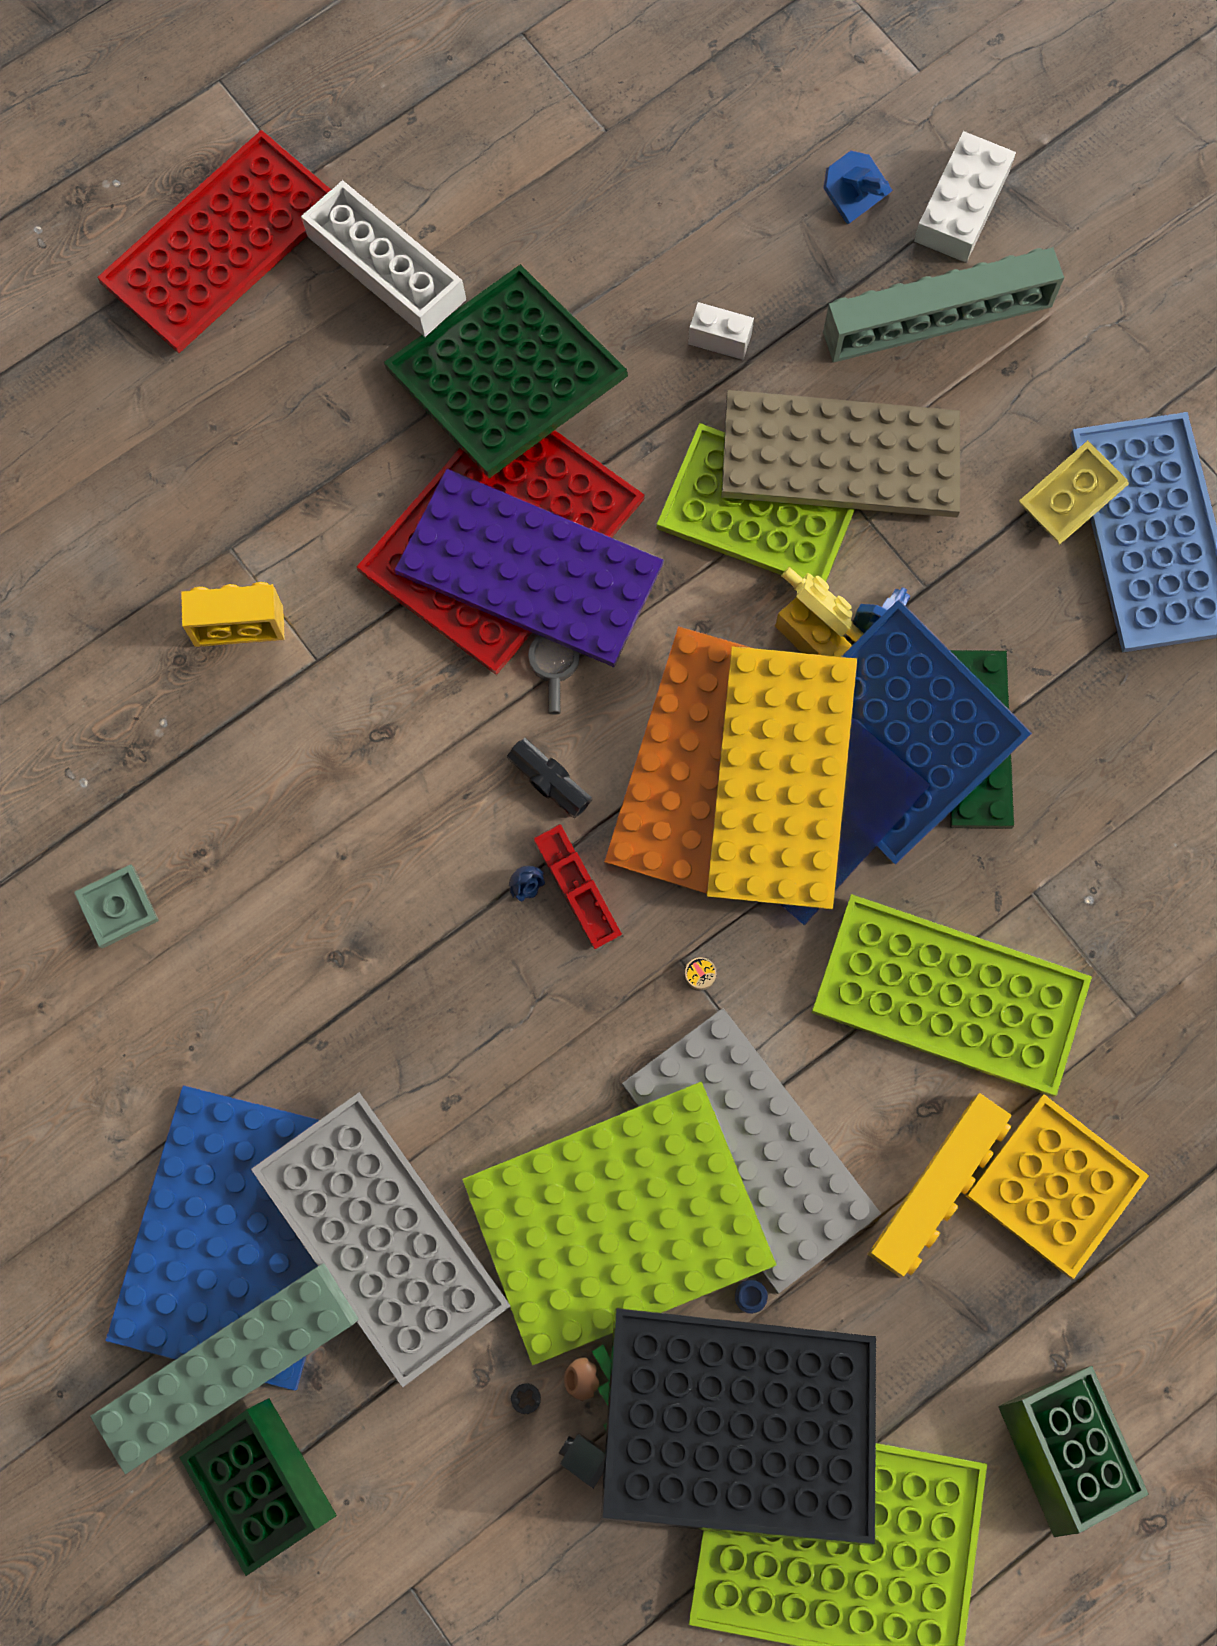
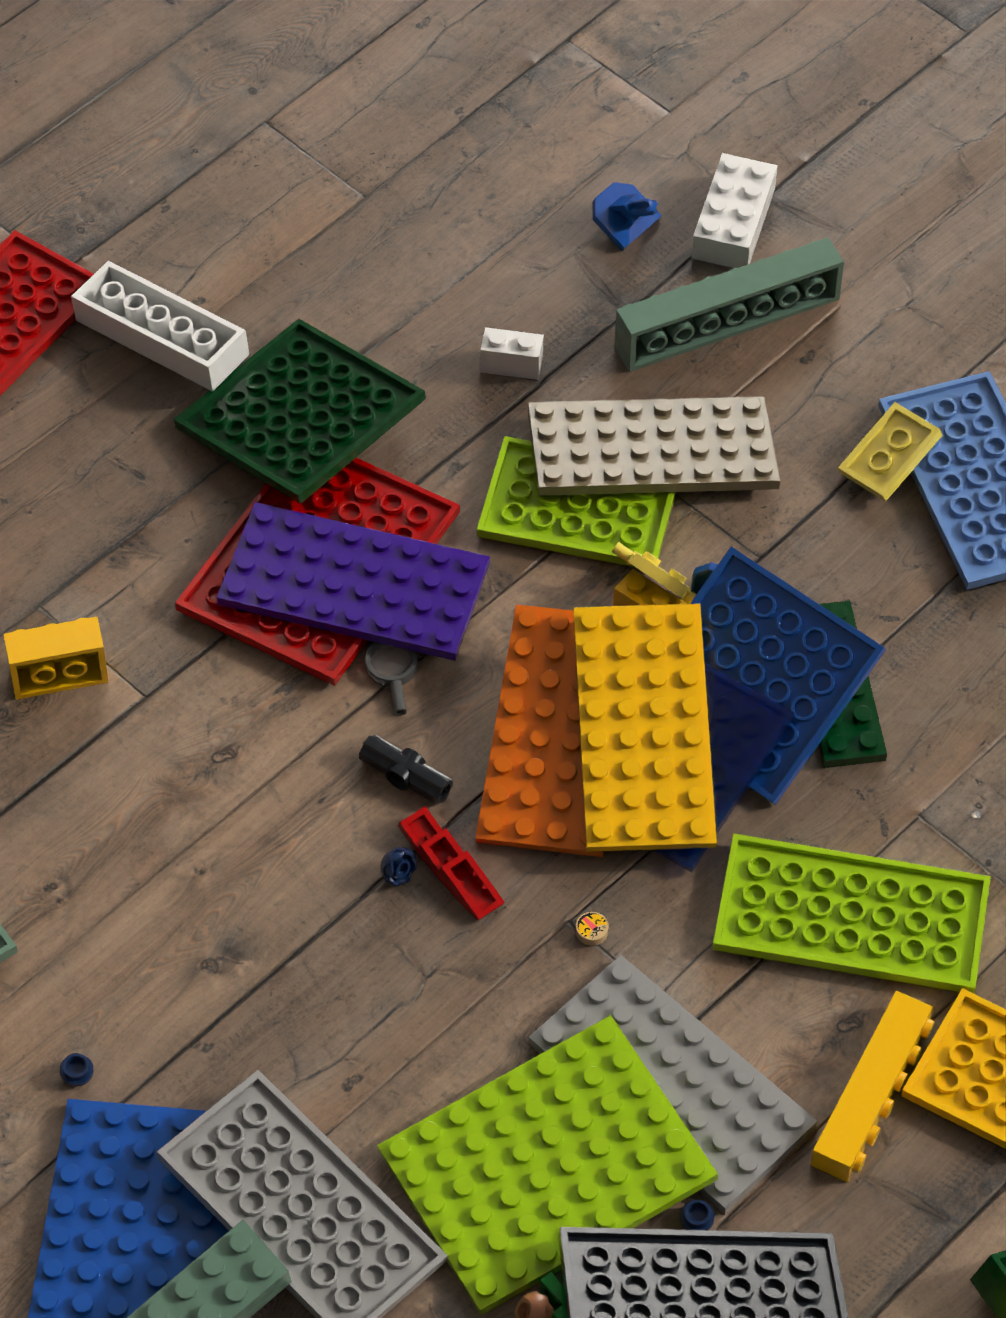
camera: 10 degrees left, 20 degrees down
(195, 1055) = (76, 1069): none -> dark blue plate

